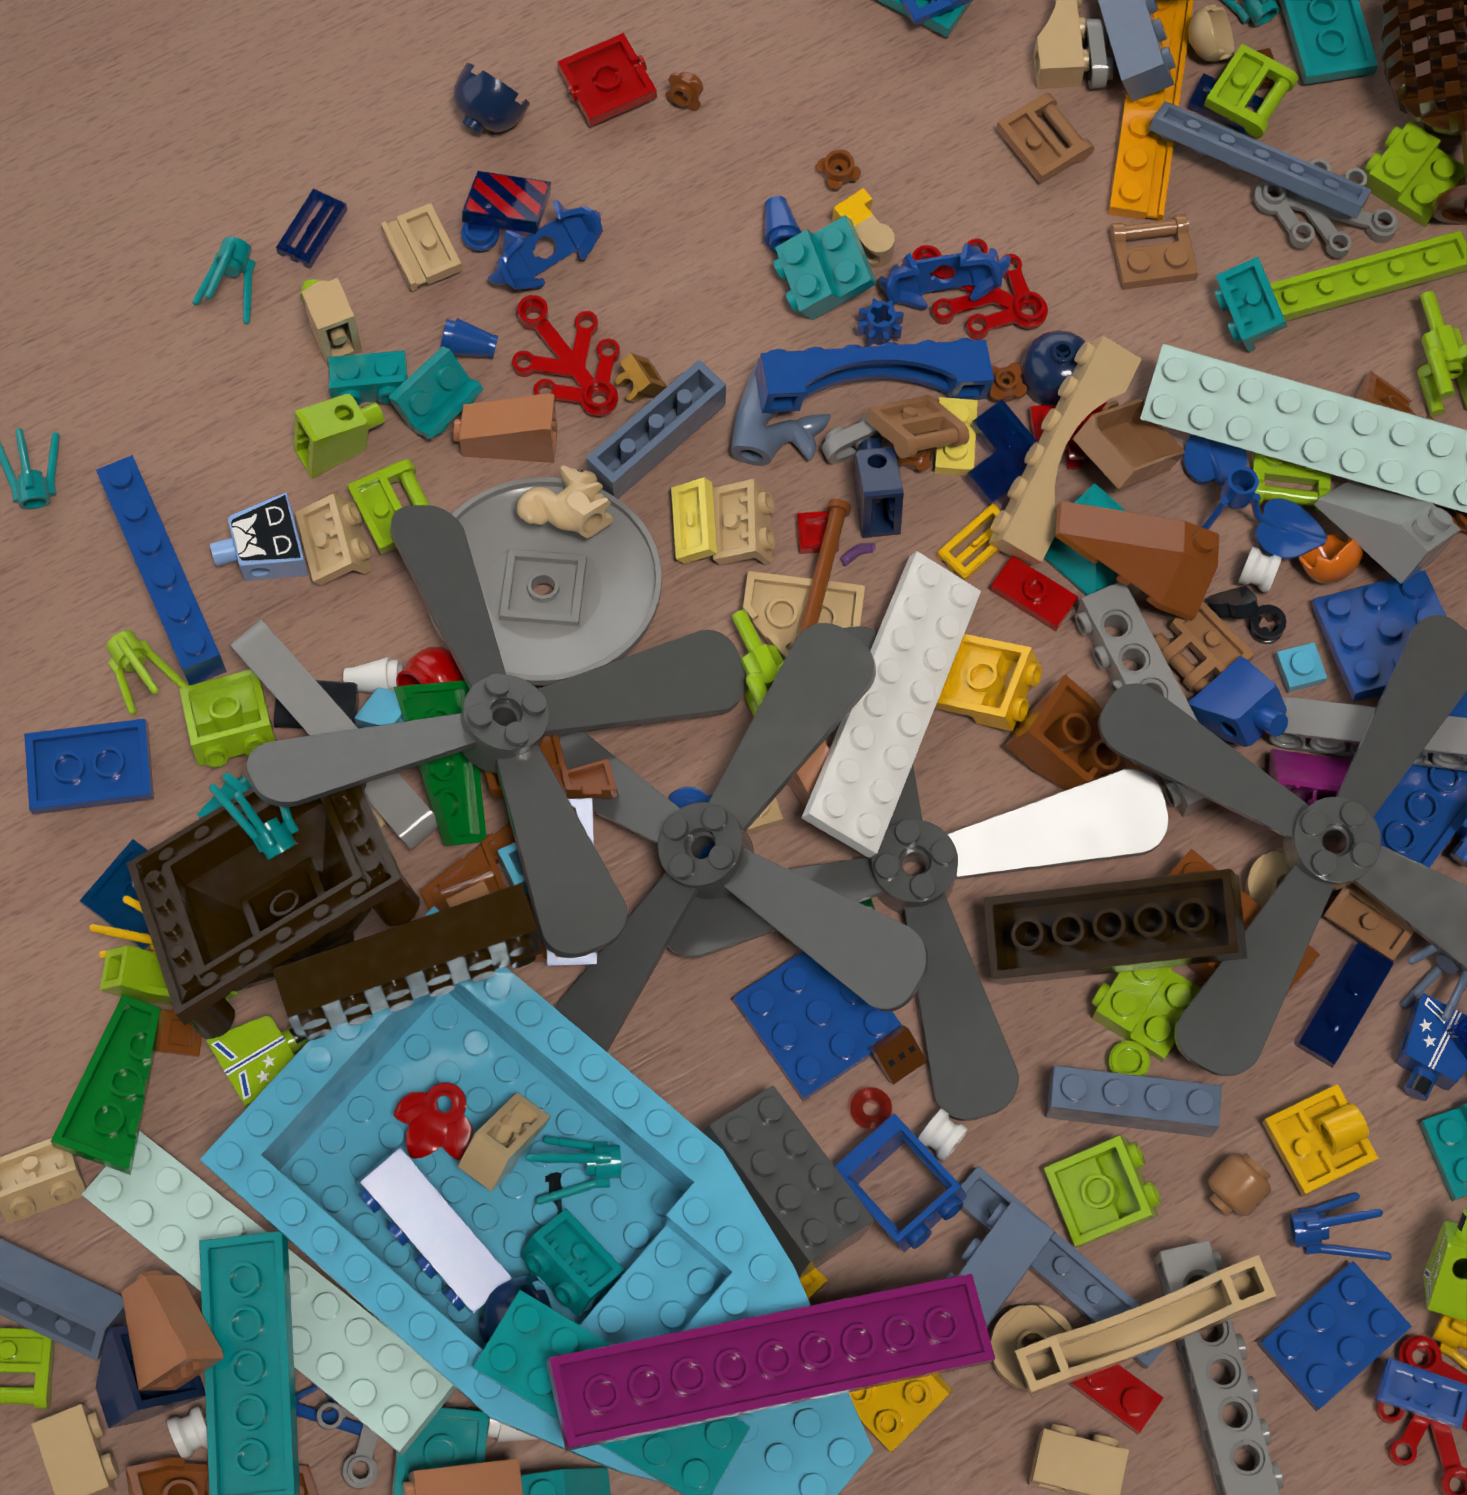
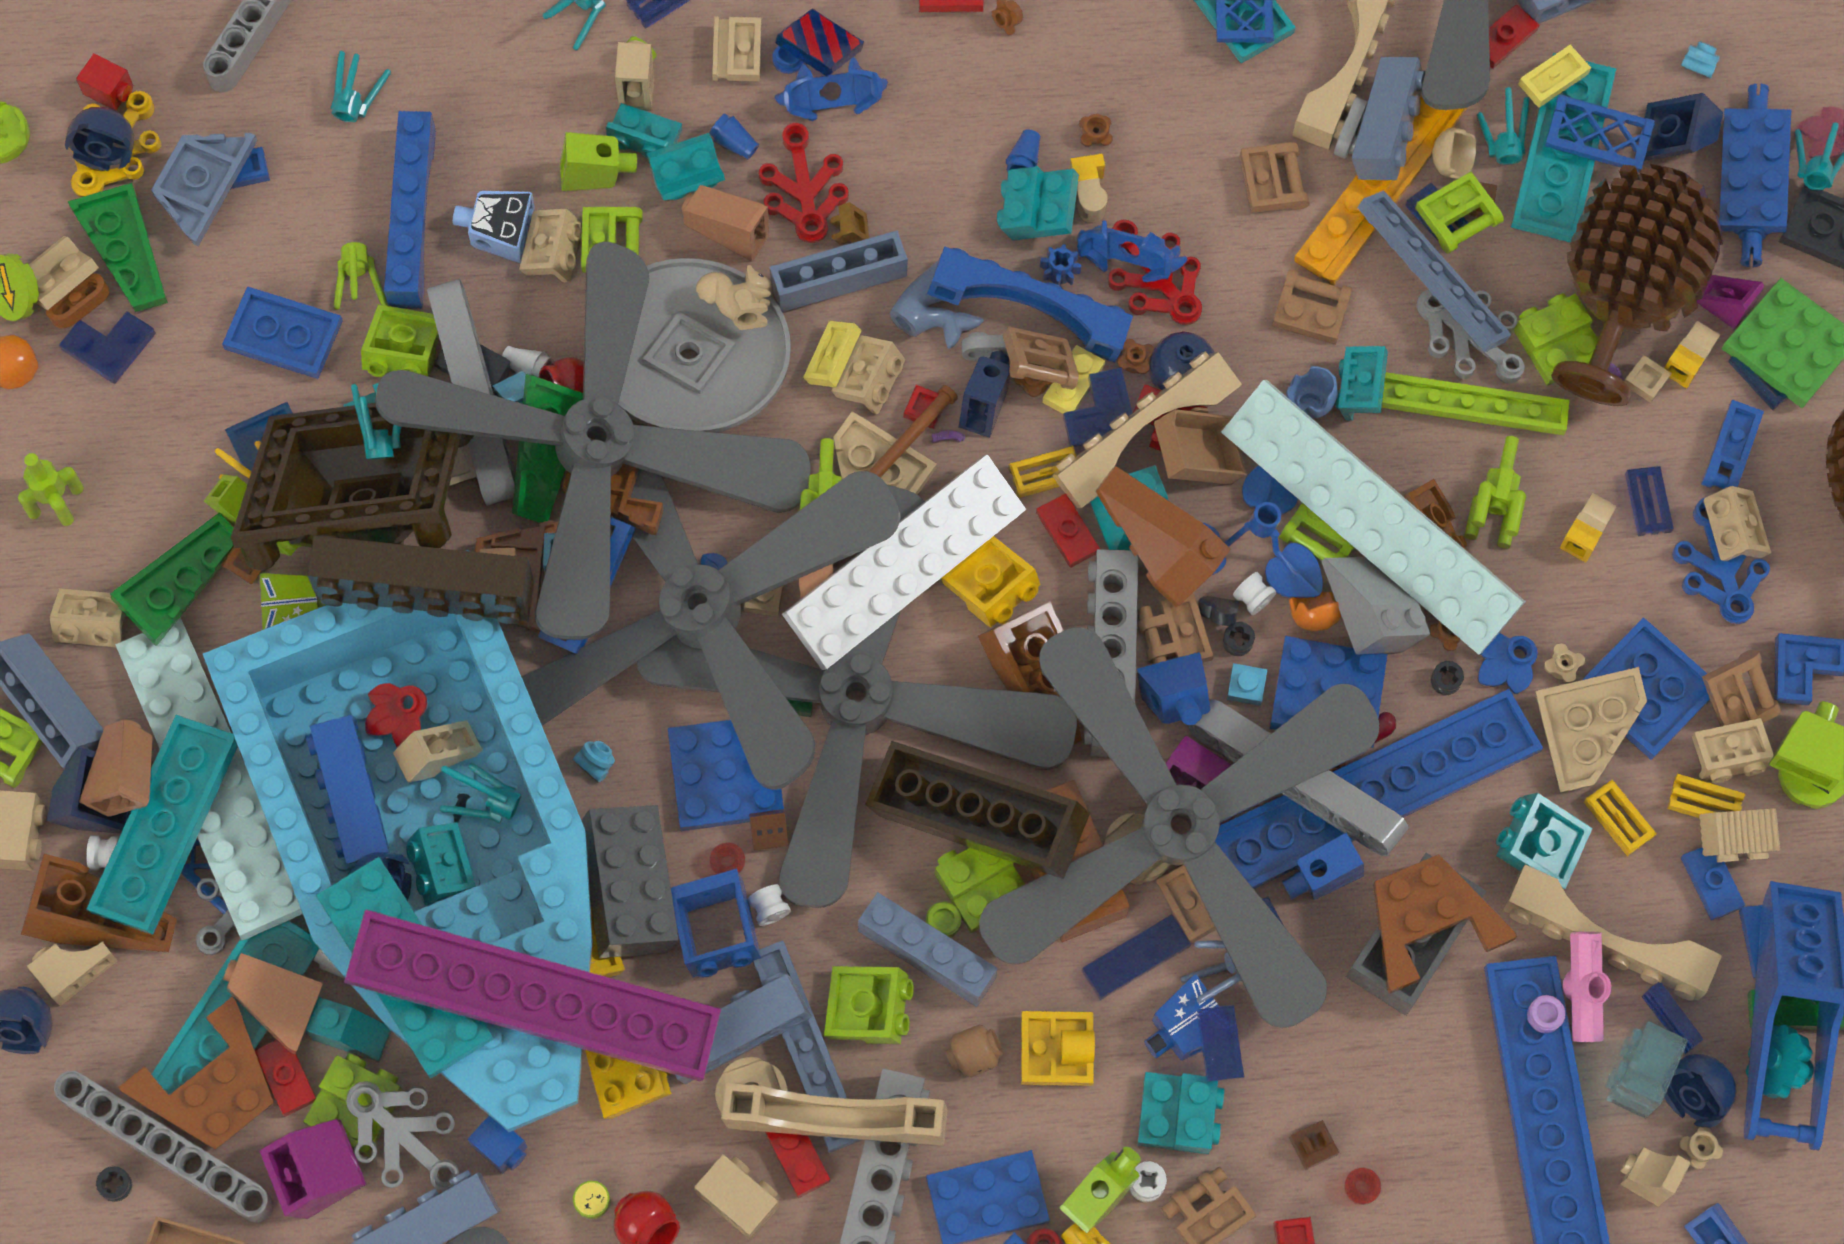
camera: 25 degrees right, 0 degrees up
(673, 1067) = (595, 759): none -> medium azure plate
(1207, 333) = (1314, 391): none -> medium blue hair
(1311, 1227) = (1013, 1110): blue plant -> none

